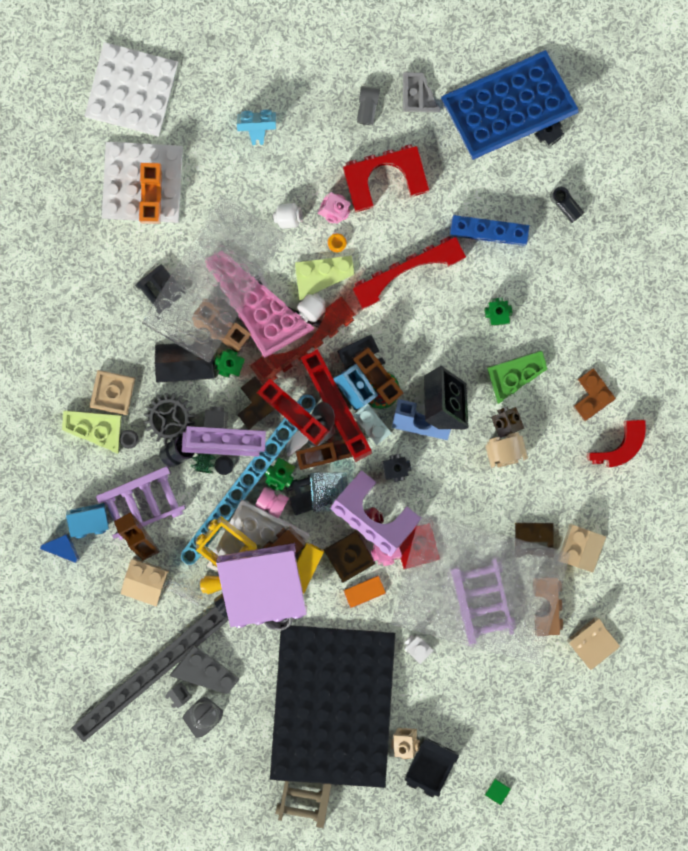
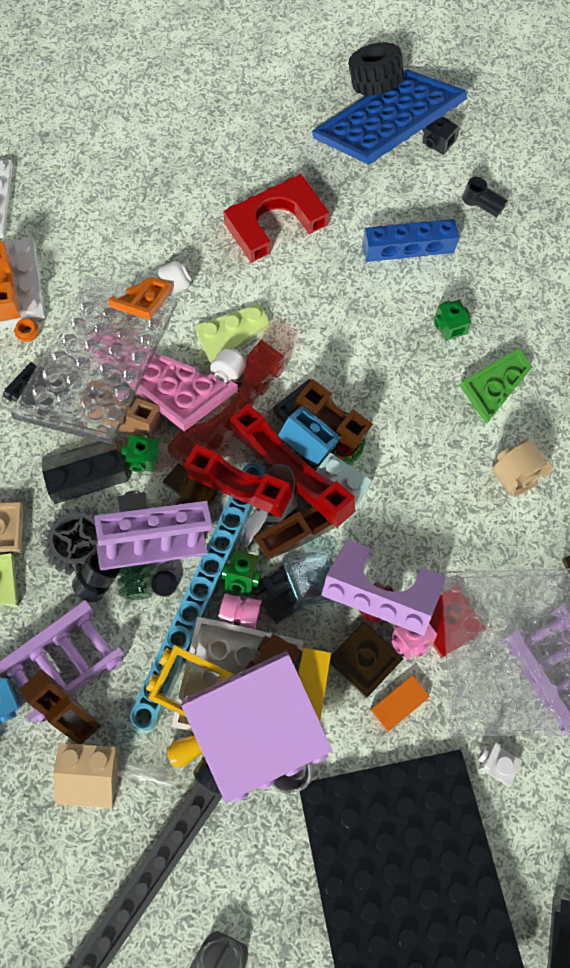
camera: 20 degrees left, 20 degrees down
(128, 439) = (28, 582): dark grey plate -> none
(163, 225) = (24, 324): none -> orange plate
(178, 695) = (173, 940): dark grey tile -> none
(204, 671) = (204, 889): dark grey wing -> none
(256, 124) = (113, 191): medium azure plate -> none
(259, 235) = (143, 299): none -> orange wing
(334, 208) = (226, 256): bright pink brick -> none
(337, 242) = (239, 295): light orange plate -> none
(368, 100) = (234, 154): dark grey piece -> none
(389, 471) = (390, 525): black brick -> none
(405, 743) = (533, 916): tan brick -> none
(409, 420) = (424, 461): medium blue arch -> none
(417, 94) = (285, 135): light grey wing -> none
(445, 400) = (425, 424): black slope -> none
(447, 253) = (369, 274): red arch -> none
(507, 421) = (507, 433): dark brown brick -> none
(514, 37) = (376, 68): none -> black tyre

